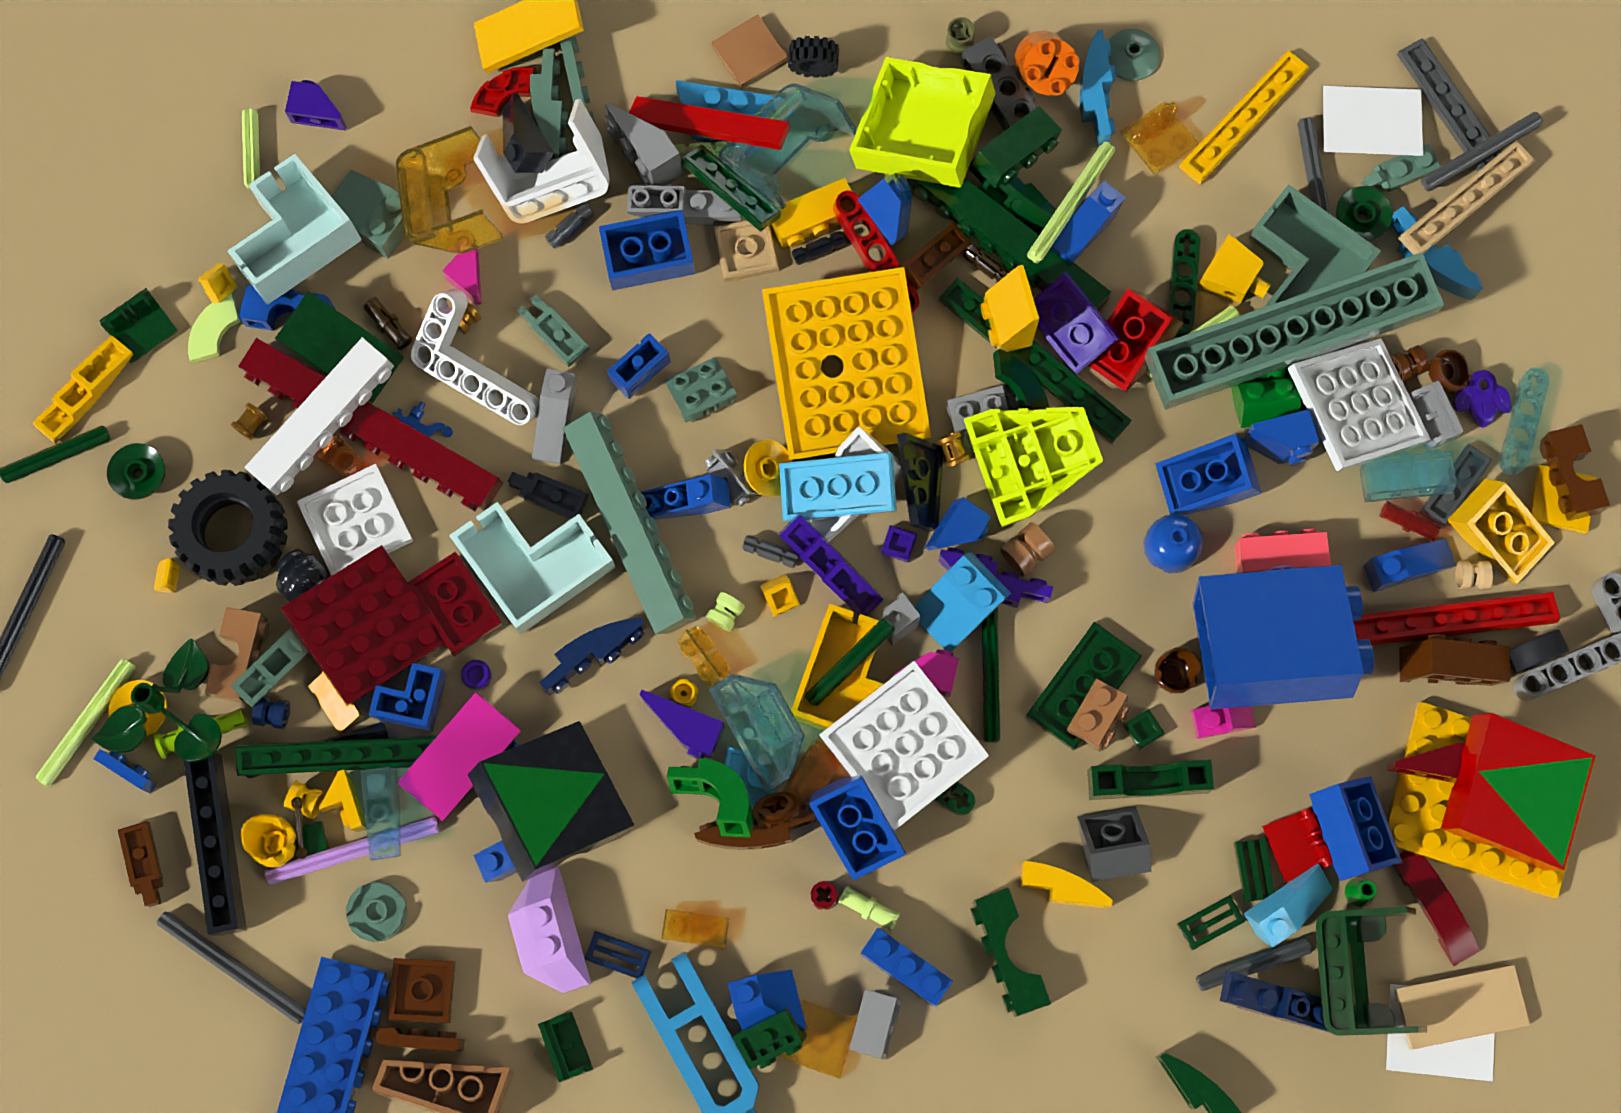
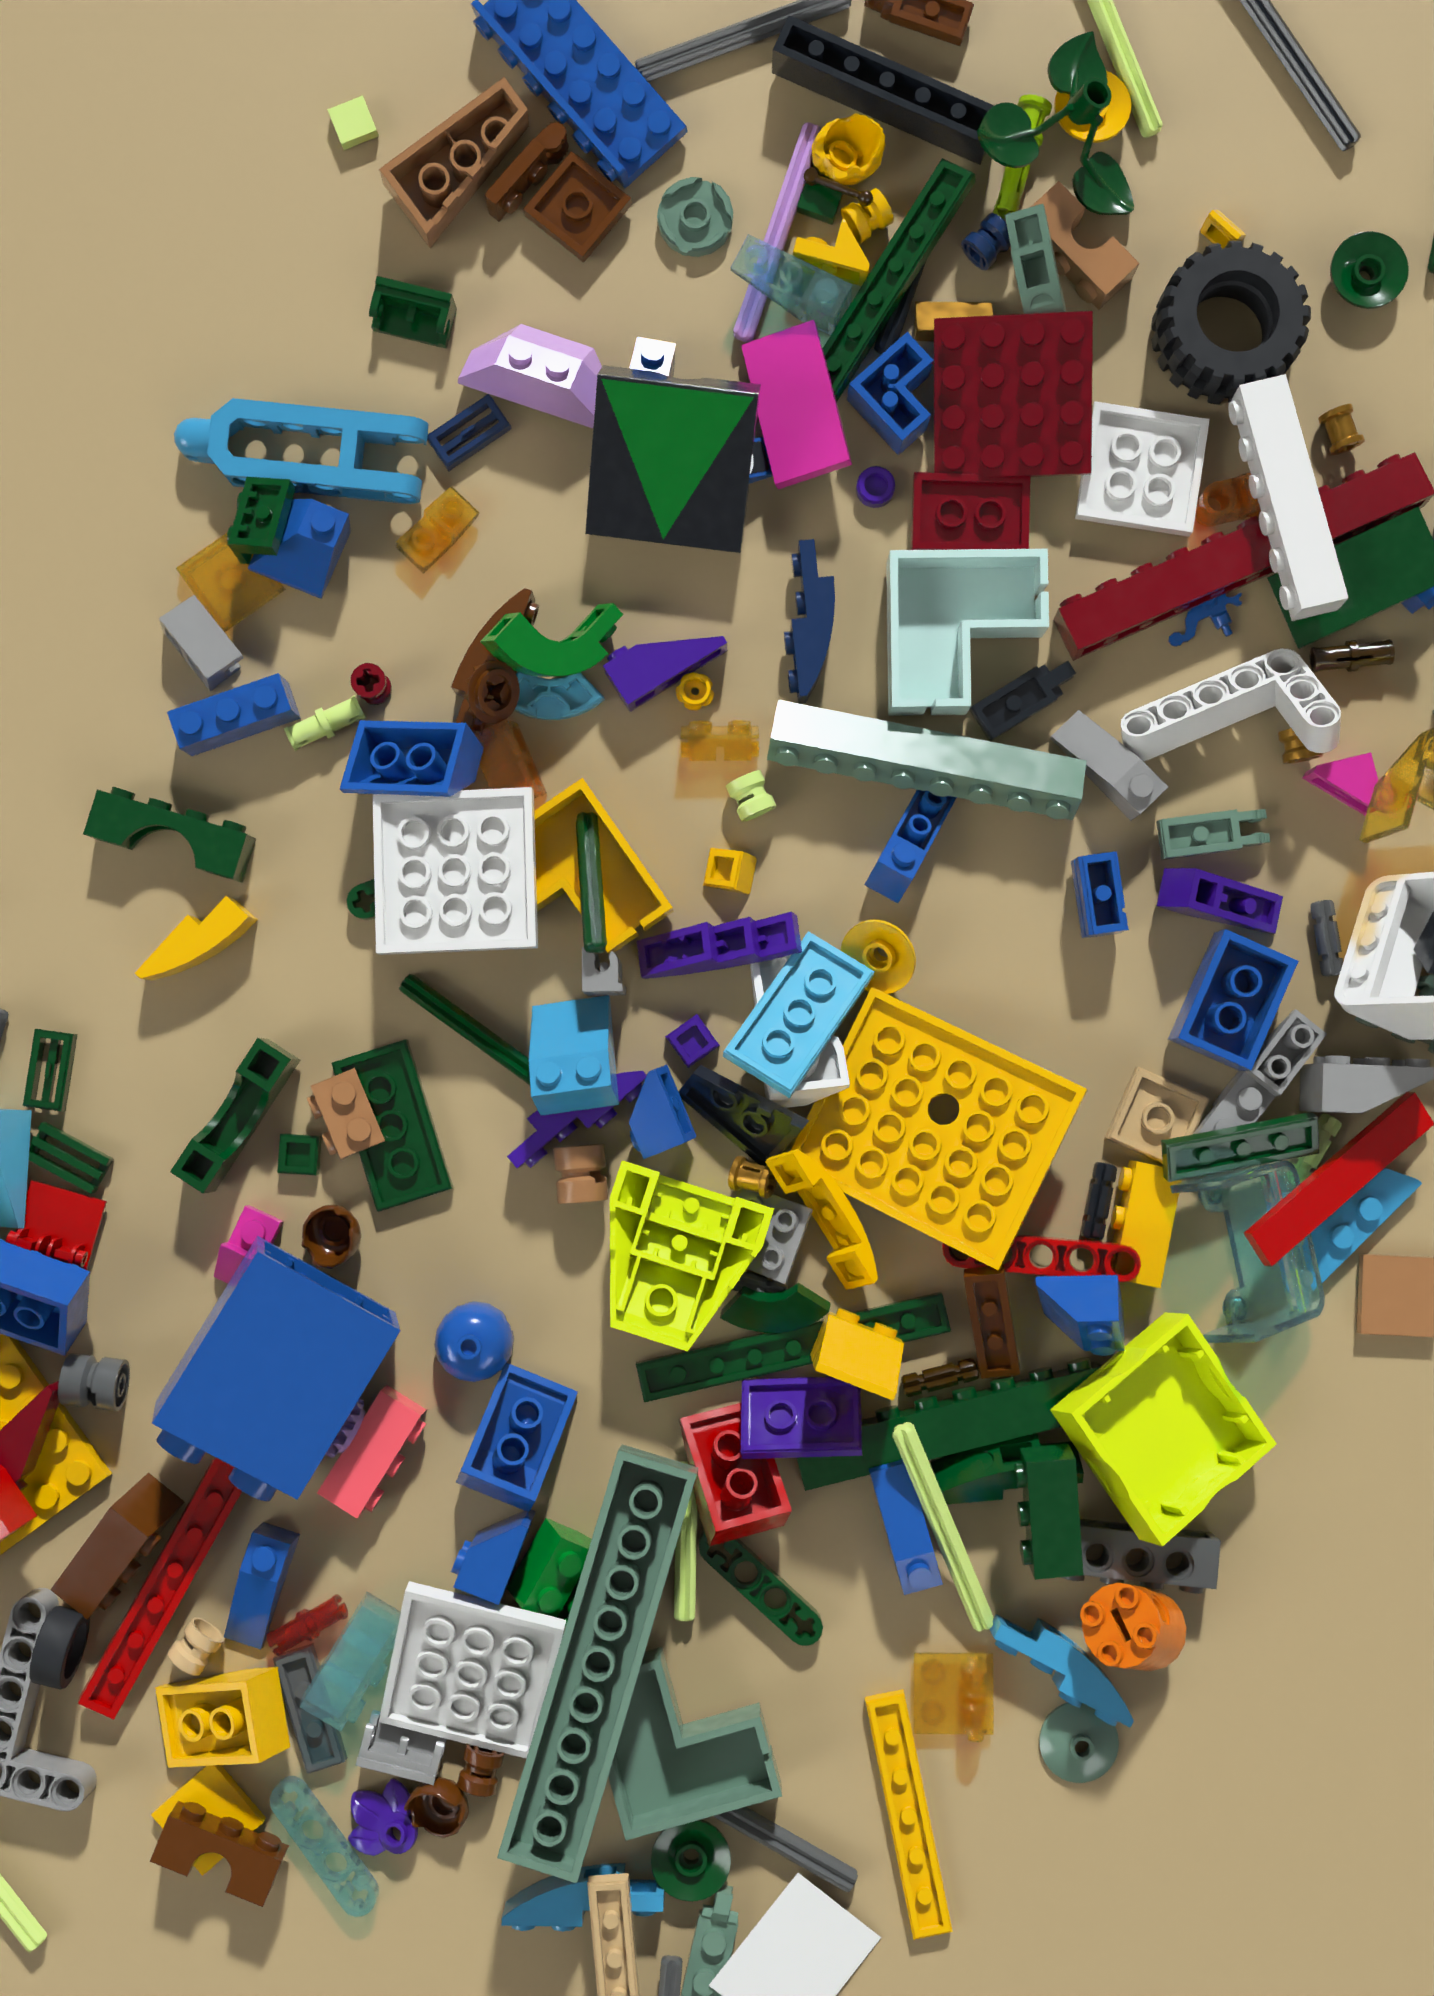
camera: 130 degrees right, 10 degrees up
(116, 762) = (1021, 56): blue plate -> none
(299, 573) = (1120, 367): black hair -> none
(591, 299) = (1219, 899): none -> dark purple slope
(701, 389) = (1025, 948): sand green hinge -> none
(725, 467) = (918, 912): light grey hinge -> none
(761, 726) = (591, 738): clear light blue wedge -> none
(770, 551) = (785, 894): dark grey axle -> none
(813, 56) = (1337, 1361): black tyre -> none
(939, 669) = (522, 972): dark pink slope -> none
(940, 386) = (833, 1212): none -> yellow slope
(960, 29) = (1251, 1558): olive wheel -> none
(1114, 844) = (201, 1029): dark grey slope -> none
(1234, 272) = (729, 1653): yellow torso -> none
(1372, 748) = (88, 1381): none -> dark grey wheel

